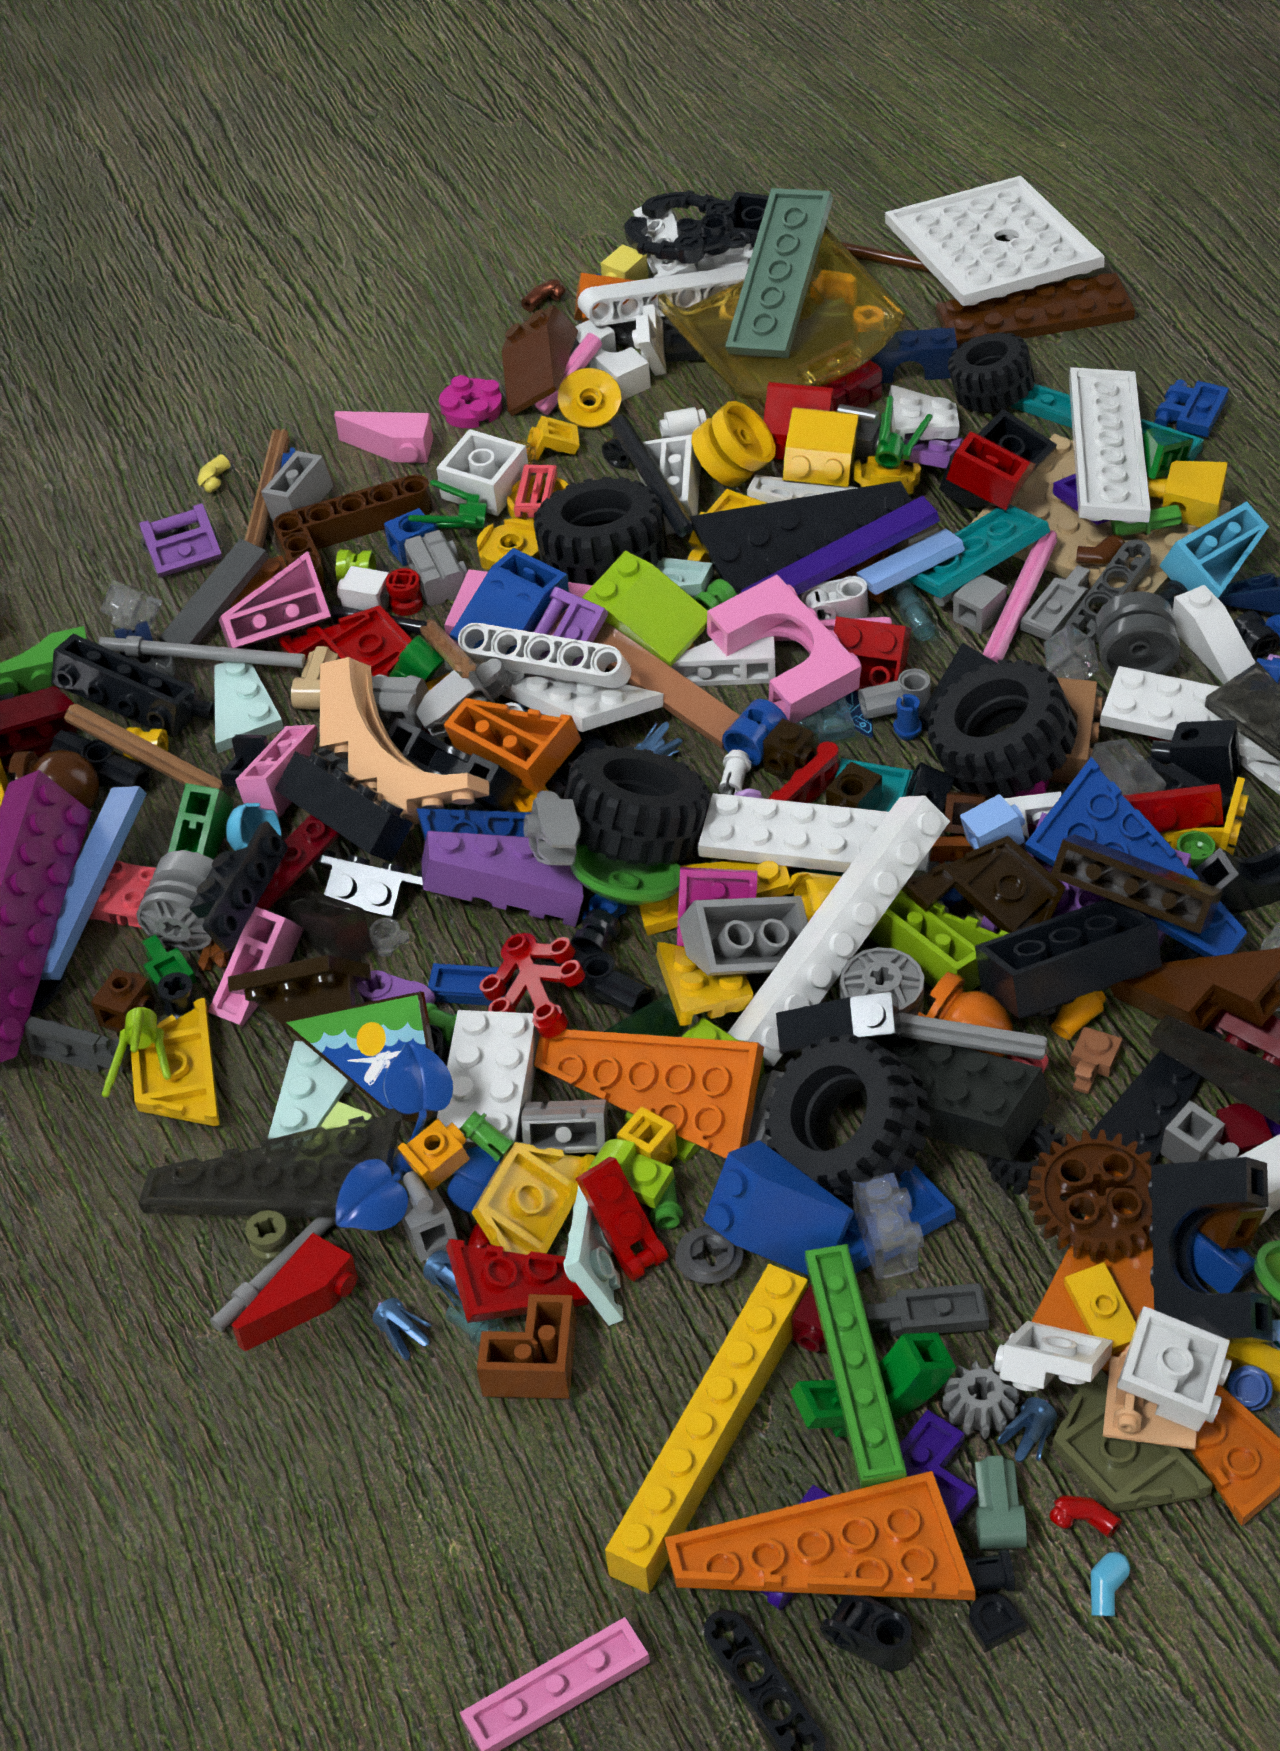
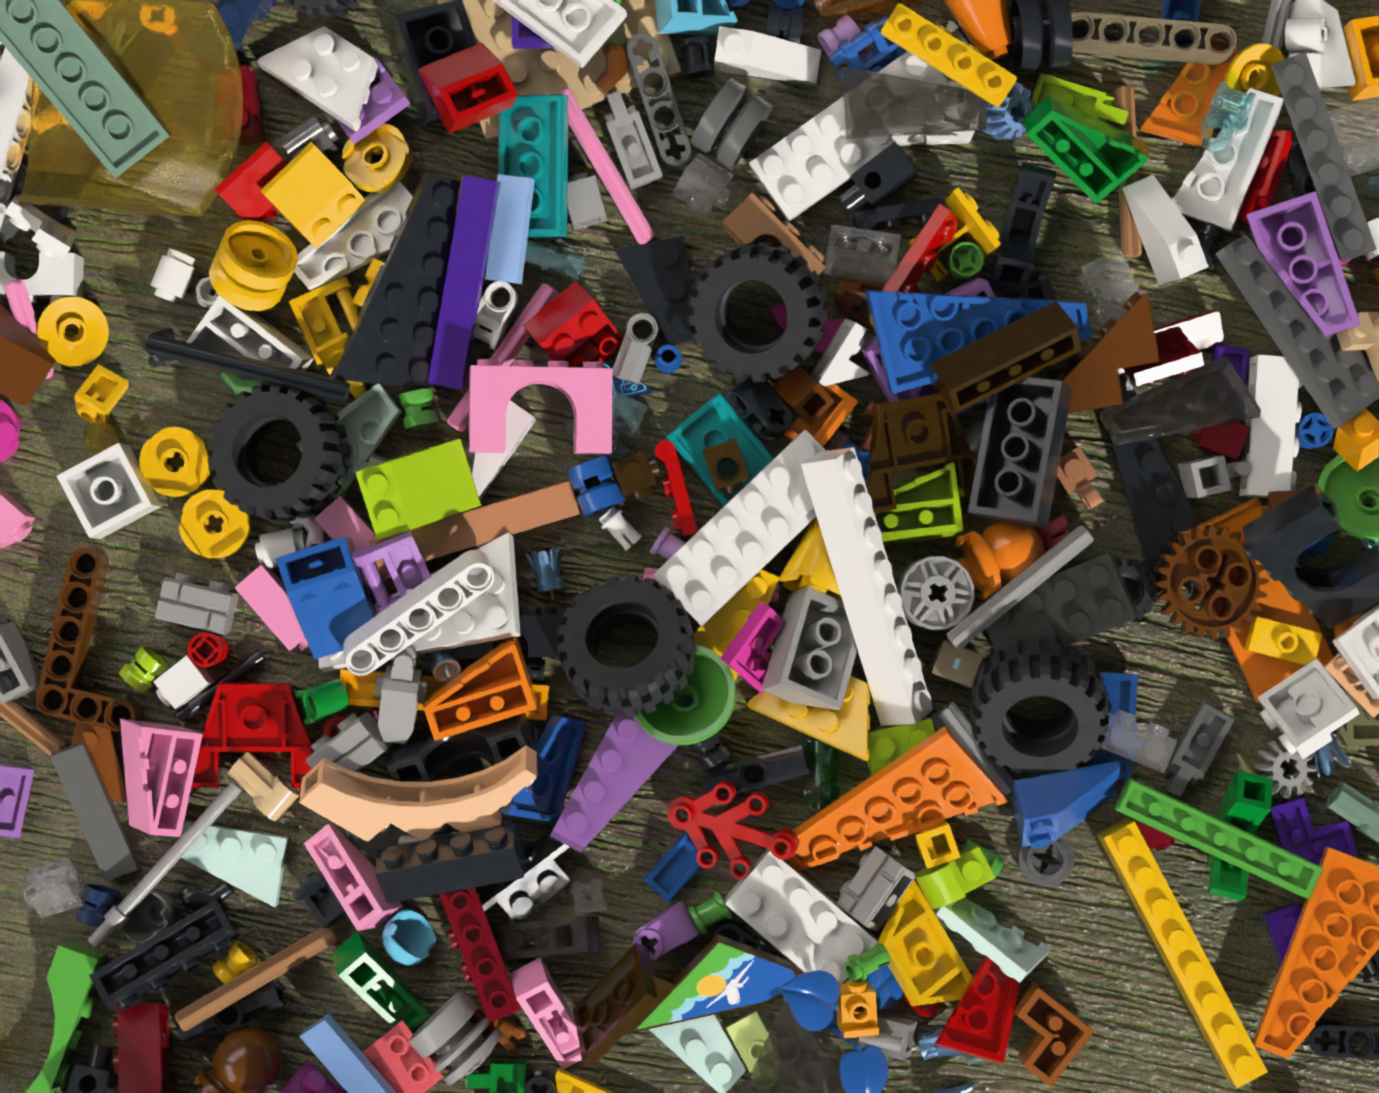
camera: 60 degrees left, 40 degrees up
(237, 885) = (494, 1006): black bracket -> none
(401, 529) = (128, 609): blue brick -> none
(448, 649) = (344, 680): medium nougat axle -> none
(469, 516) = (153, 534): green plant -> none
(540, 470) = (192, 483): coral tile -> none
(553, 829) = (630, 738): light grey hinge -> none
(621, 1217) = (991, 908): red plate -> none
(864, 1016) = (971, 659): black slope -> none
(891, 445) = (367, 144): green plant -> none
(992, 821) = (856, 401): light blue brick -> none

